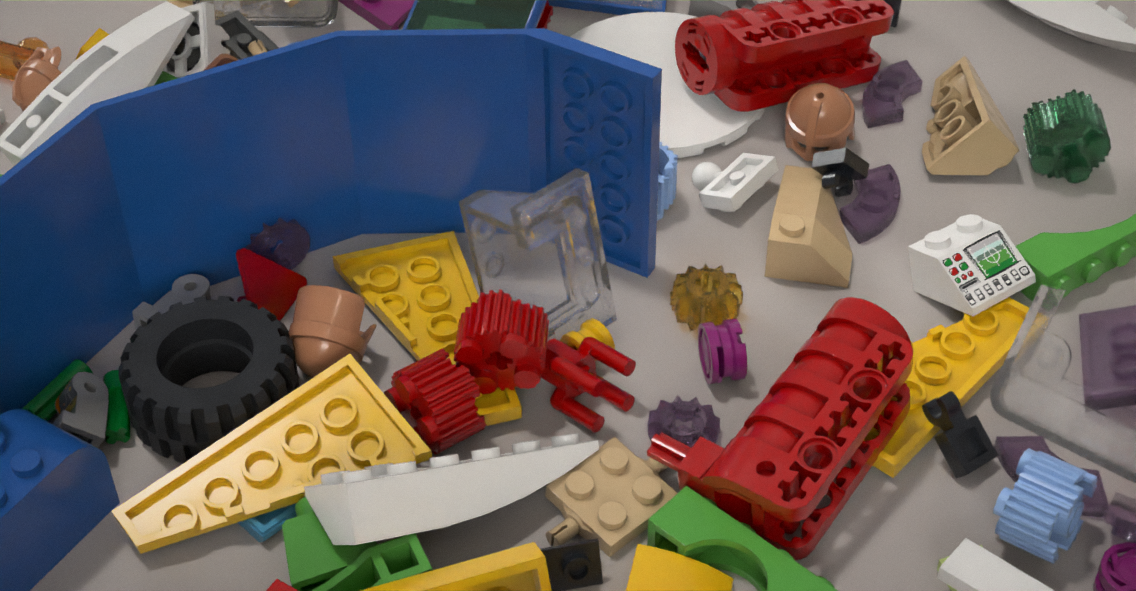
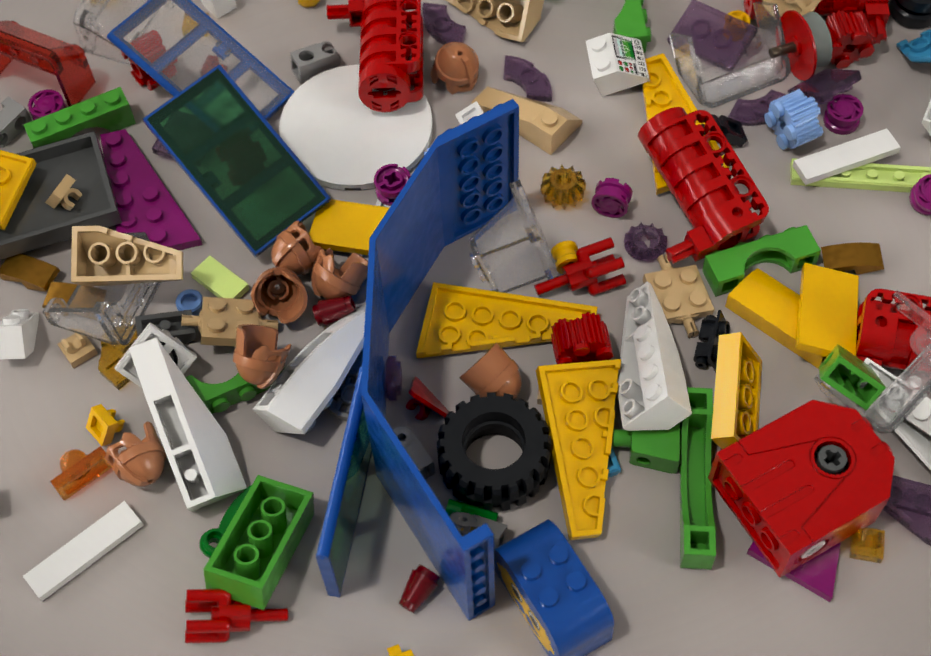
camera: 60 degrees left, 15 degrees up
(502, 342) = (568, 290): red brick -> none
(840, 169) = (502, 78): black tile -> none

